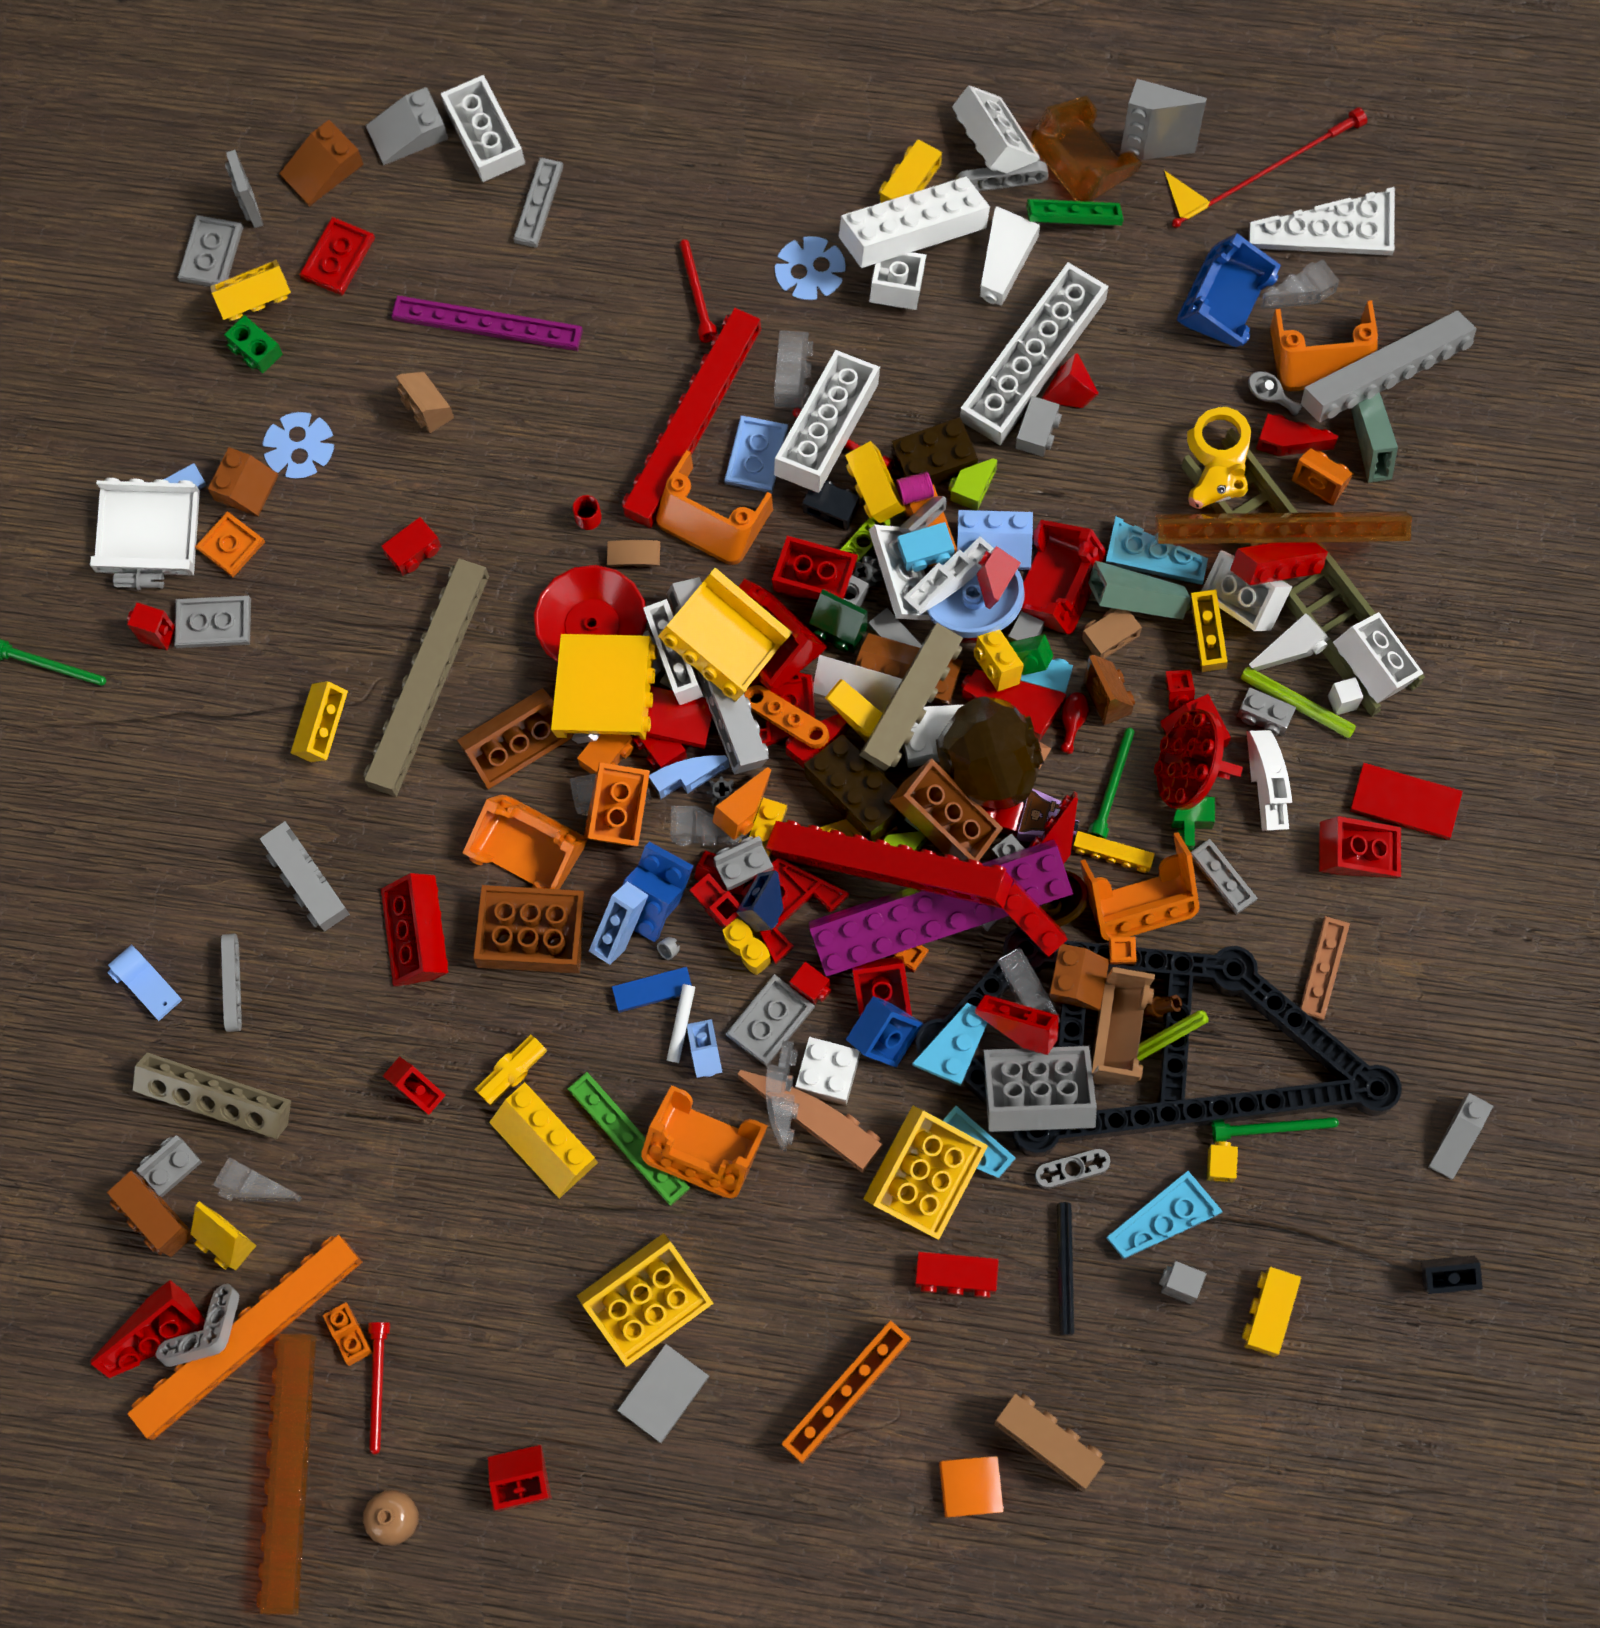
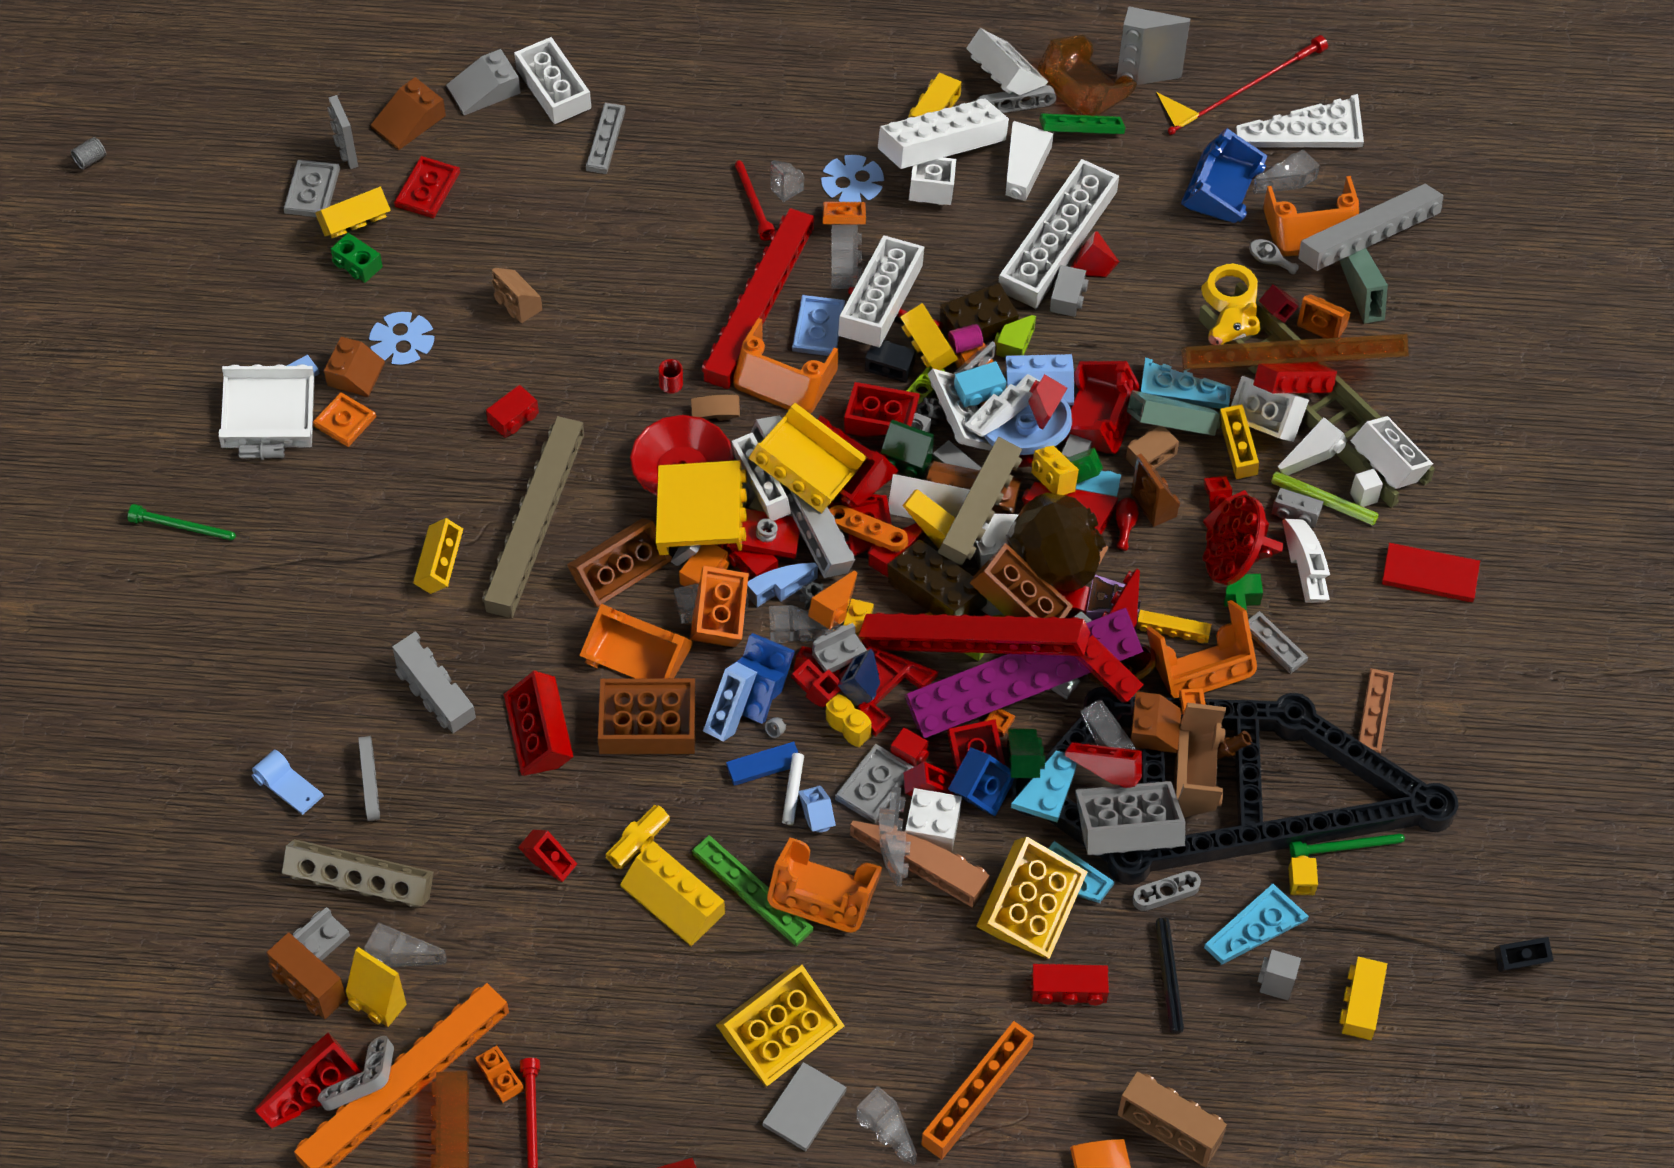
camera: 10 degrees left, 15 degrees down
(151, 626) = (277, 484): red brick -> none
(212, 621) = (332, 483): light grey tile -> none
(487, 323) = (567, 233): magenta tile -> none
(674, 725) = (769, 525): none -> light grey bush
(734, 269) = (786, 180): none -> clear slope
(745, 1413) = (883, 1116): none -> clear slope
(795, 315) = (844, 213): none -> orange tile
(827, 1025) = (927, 778): none -> red slope
(933, 1002) = (1025, 753): none -> dark green brick
(1099, 826) = (1159, 605): green piece -> none
(1172, 1034) = (1246, 763): lime axle -> none
(1273, 460) = (1279, 303): none -> dark red slope
(1288, 437) = (1299, 286): red slope -> none
(1359, 848) = (1394, 610): red slope -> none
(1460, 1135) = (1516, 840): light grey slope -> none

